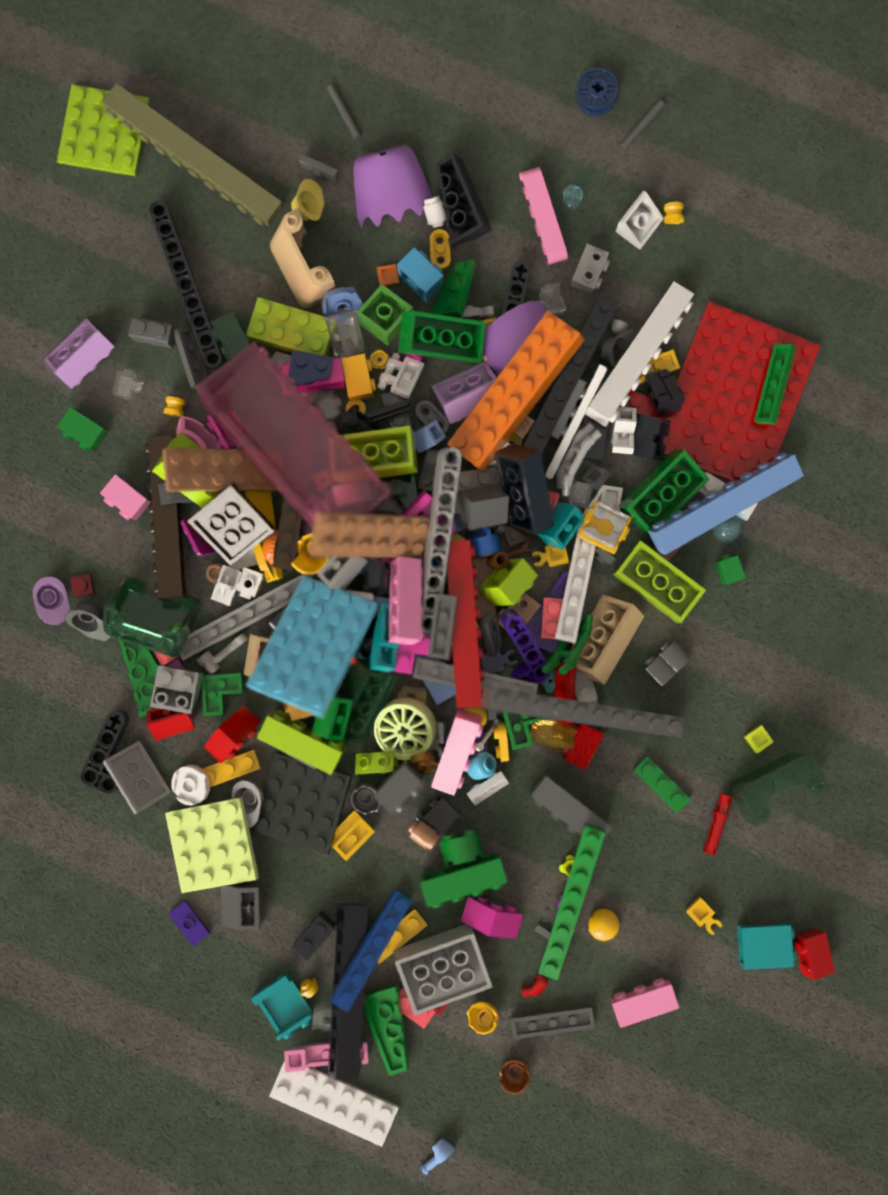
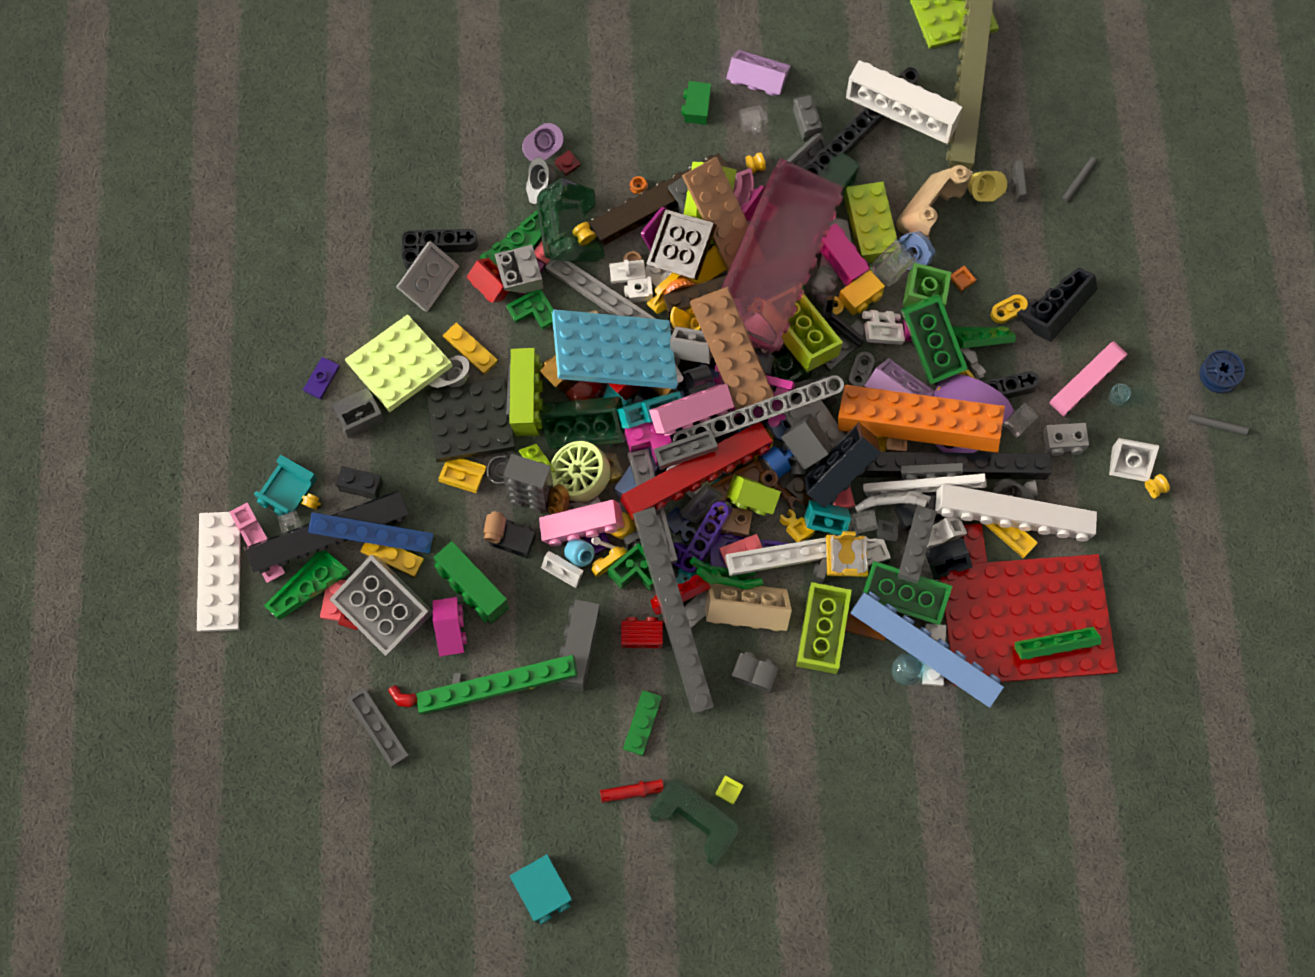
camera: 55 degrees right, 15 degrees down
(124, 497) = (658, 160): bright pink brick -> none
(140, 534) = (638, 181): none -> orange plate
(167, 607) = (584, 233): none -> yellow wheel
(188, 233) = (903, 101): none -> white brick
(190, 785) = (442, 323): white tile -> none
(211, 662) = (555, 291): light grey brick -> none
(231, 734) = (501, 331): red brick -> none
(308, 368) = (846, 245): dark blue wing -> none
(335, 719) = (560, 400): green brick -> none
(374, 359) = (887, 300): yellow plate -> none
(389, 184) = (1040, 243): medium lavender piece -> none
(420, 274) = (977, 300): dark azure brick -> none
(428, 436) = (843, 369): light blue brick -> none
(434, 211) = (1038, 287): white brick -> none
(442, 1150) = (217, 683): light blue bar -> none
(462, 848) = (498, 568): green brick -> none
(487, 1022) = (355, 654): yellow hair -> none
(511, 1083) = (305, 715): dark orange hair -> none
(552, 734) = (638, 597): clear yellow brick -> none
(603, 924) = (488, 732): yellow hair -> none
(630, 460) = (917, 544): none -> dark grey plate
(644, 1002) = (435, 800): bright pink brick -> none
(663, 392) = (994, 550): black brick -> none
(702, 913) = (541, 815): yellow plate -> none
(730, 569) = (869, 688): green brick -> none
(814, 954) = (554, 937): red brick -> none

